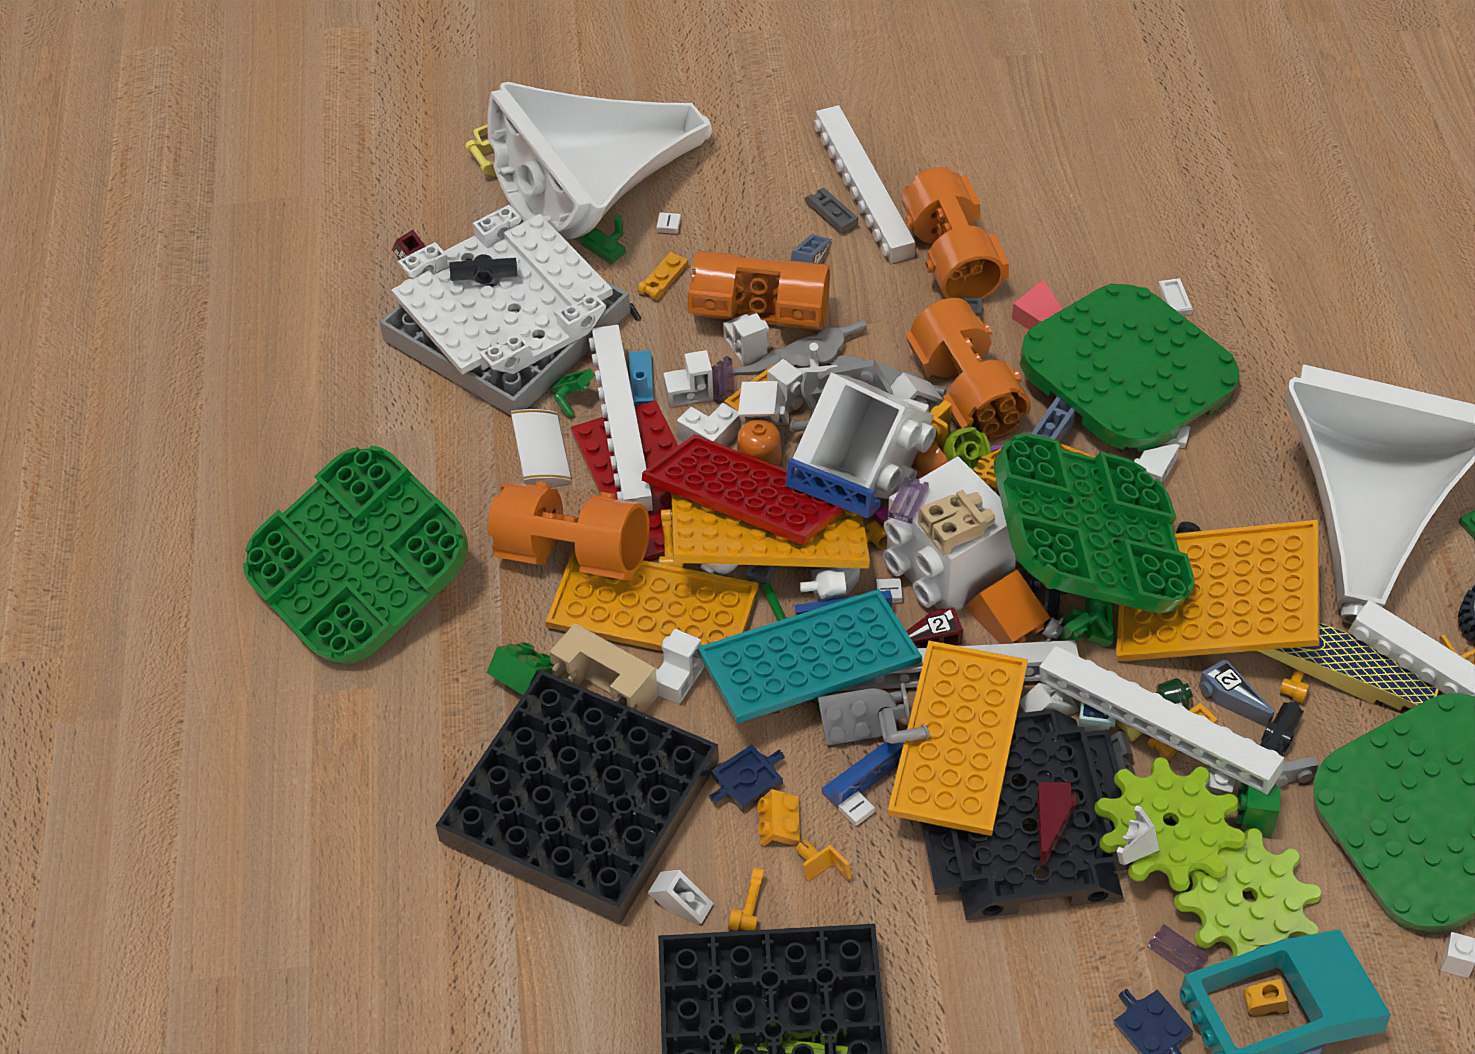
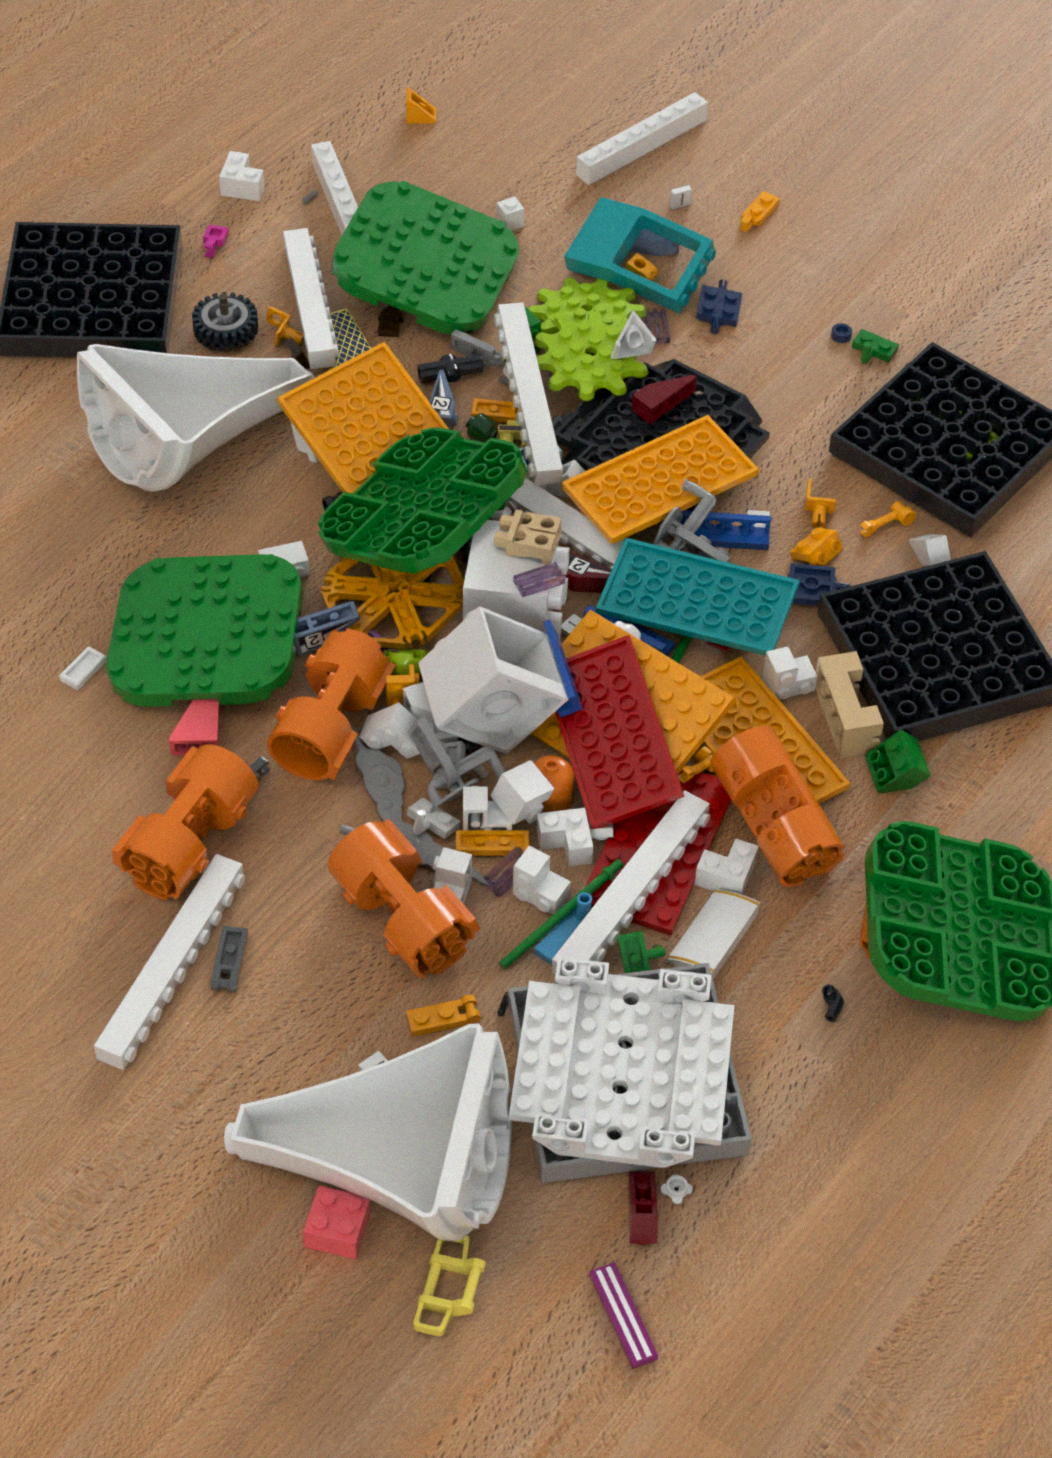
camera: 140 degrees left, 0 degrees up
(378, 211) = (623, 1315): none -> magenta tile
(416, 468) = (834, 1001): none -> black arm
(483, 269) = (623, 1085): black piece -> none
(574, 485) = (729, 872): none -> white brick
(649, 415) = (608, 873): none -> green bar
(811, 249) = (305, 925): sand blue slope -> none

